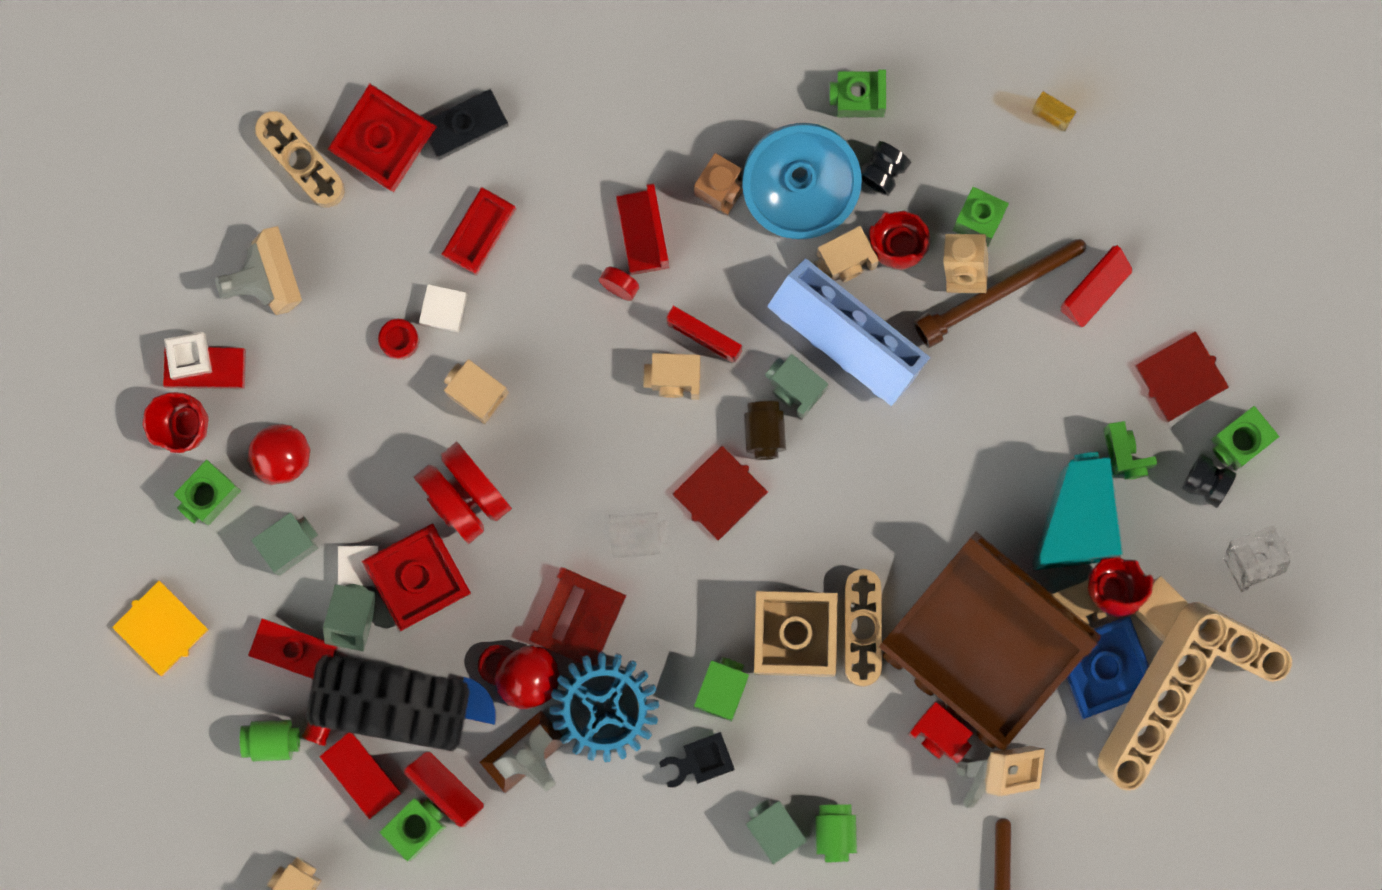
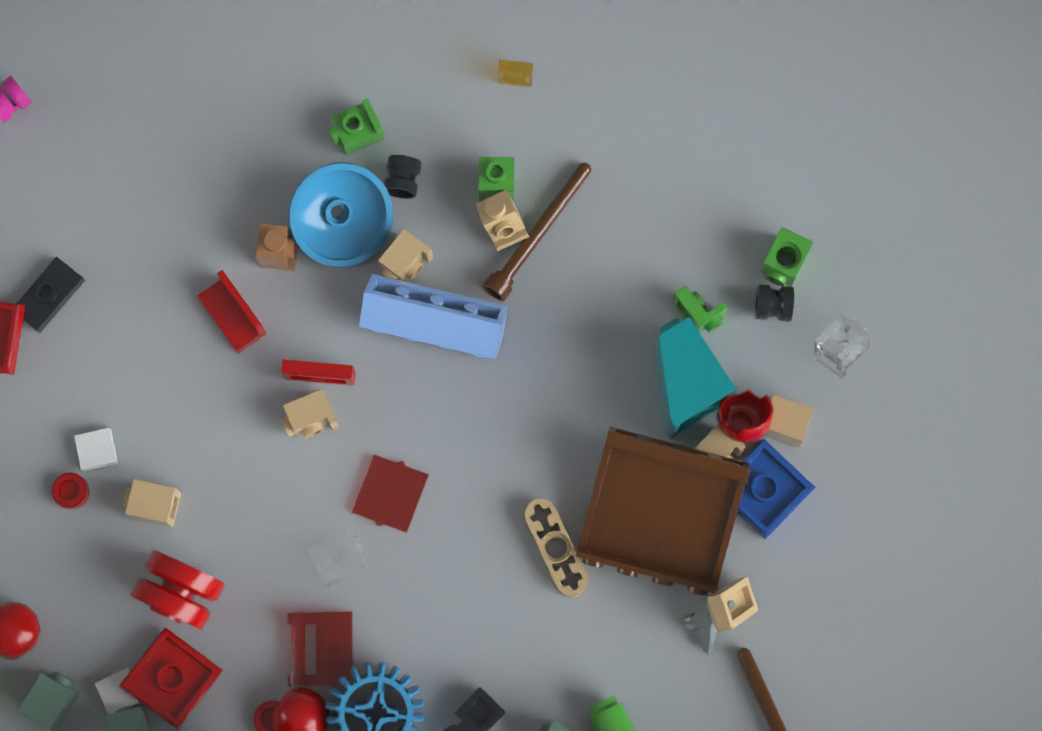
camera: 30 degrees left, 5 degrees down
(479, 231) = (98, 374): red tile -> none
(619, 283) = (231, 363): red tile -> none
(722, 688) = (465, 651): bright green brick -> none
(764, 430) = (402, 425): dark brown brick -> none
(795, 634) = (503, 577): tan brick -> none
(796, 384) = (411, 377): sand green brick -> none
(899, 239) = (441, 226): red hair -> none
(942, 734) = (660, 602): red brick -> none
(1097, 287) = (614, 193): red slope -> none
(1181, 376) = (713, 233): clear red piece -> none
(1181, 686) = (832, 474): tan beam -> none

